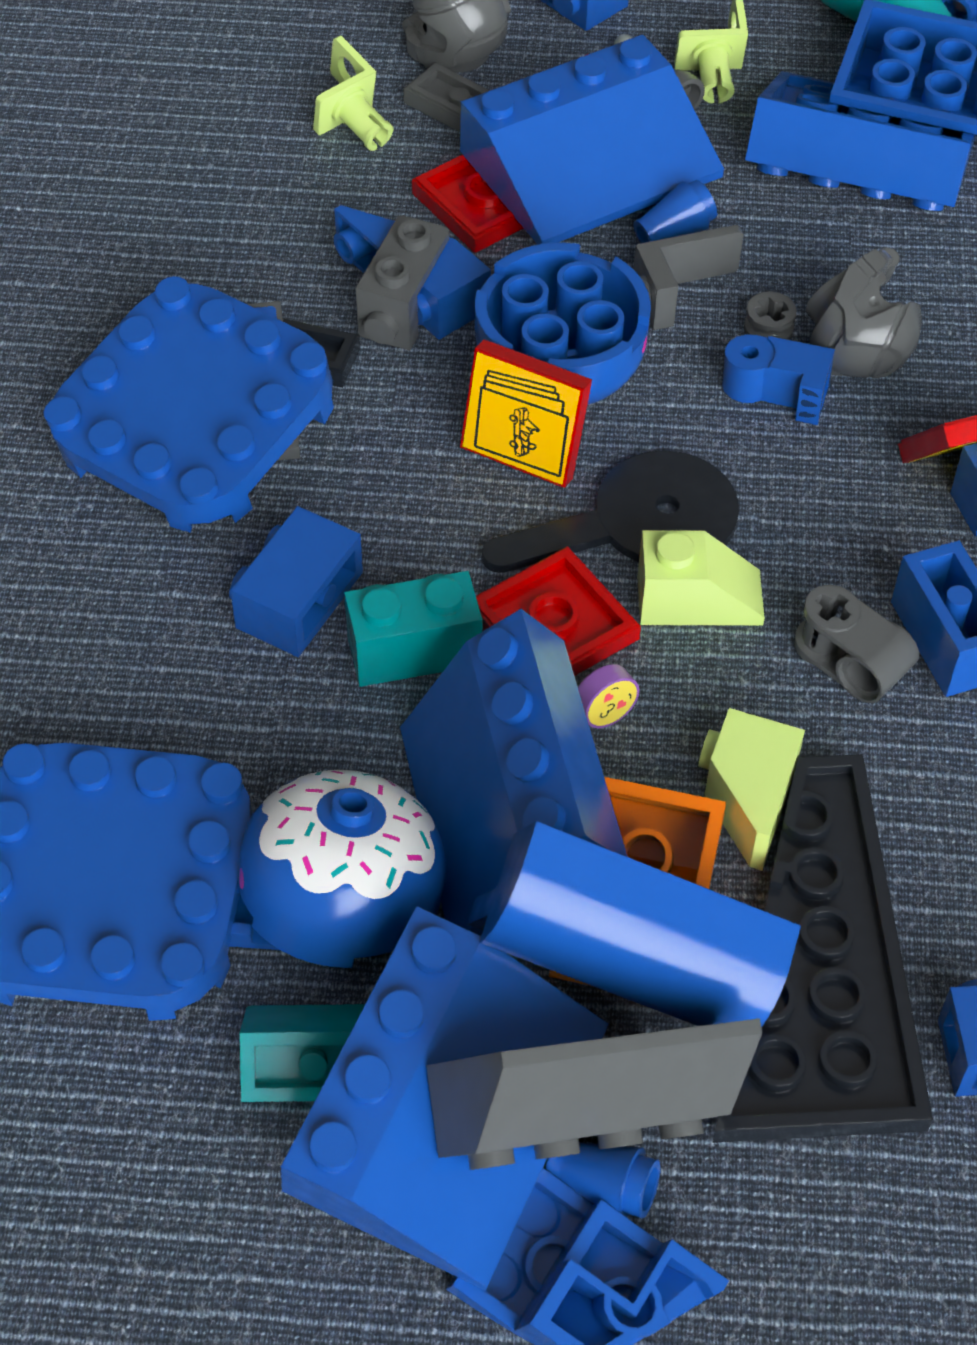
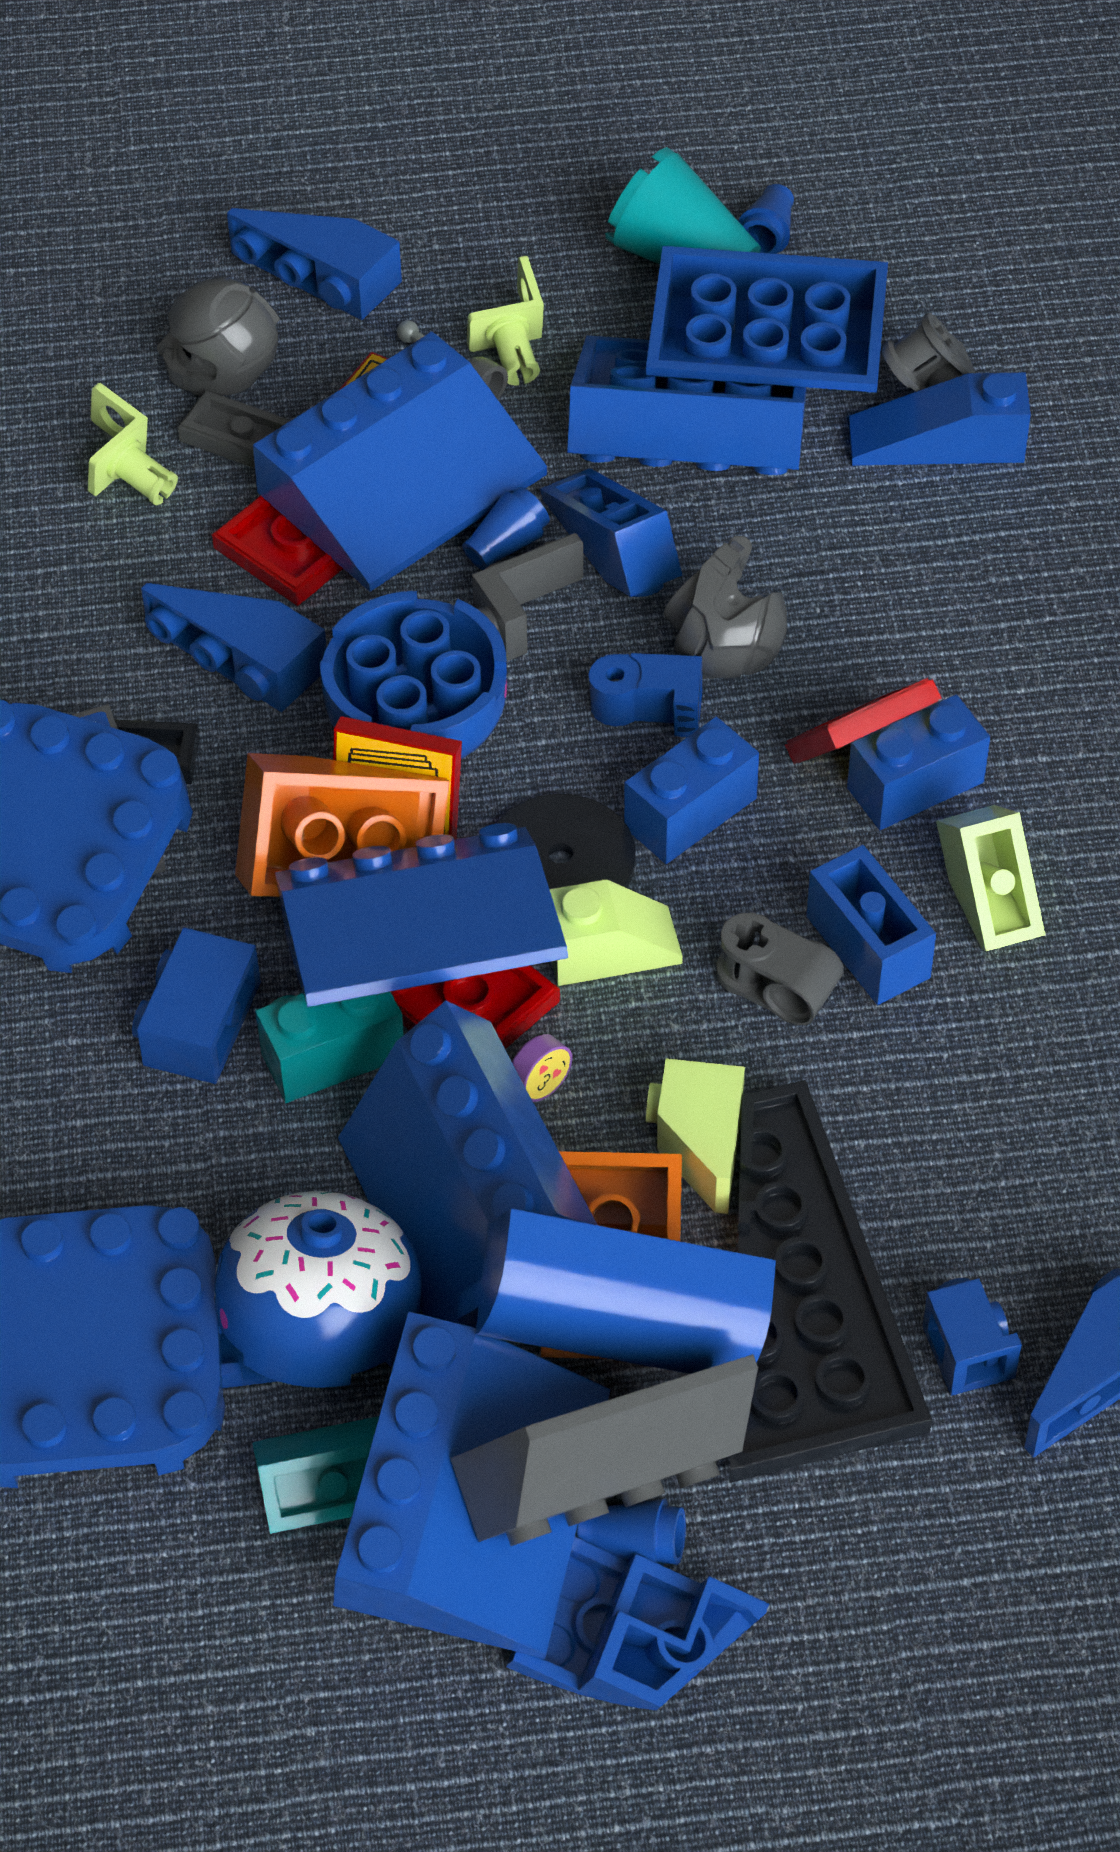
camera: 10 degrees left, 0 degrees up
(393, 280) = (226, 658): dark grey bracket -> none
(464, 445) = (328, 811): none -> orange slope
(519, 530) = (418, 914): none -> blue slope
(770, 315) = (631, 615): dark grey bush -> none
(780, 234) = (620, 531): none -> blue slope
(802, 466) = (691, 790): none -> blue brick

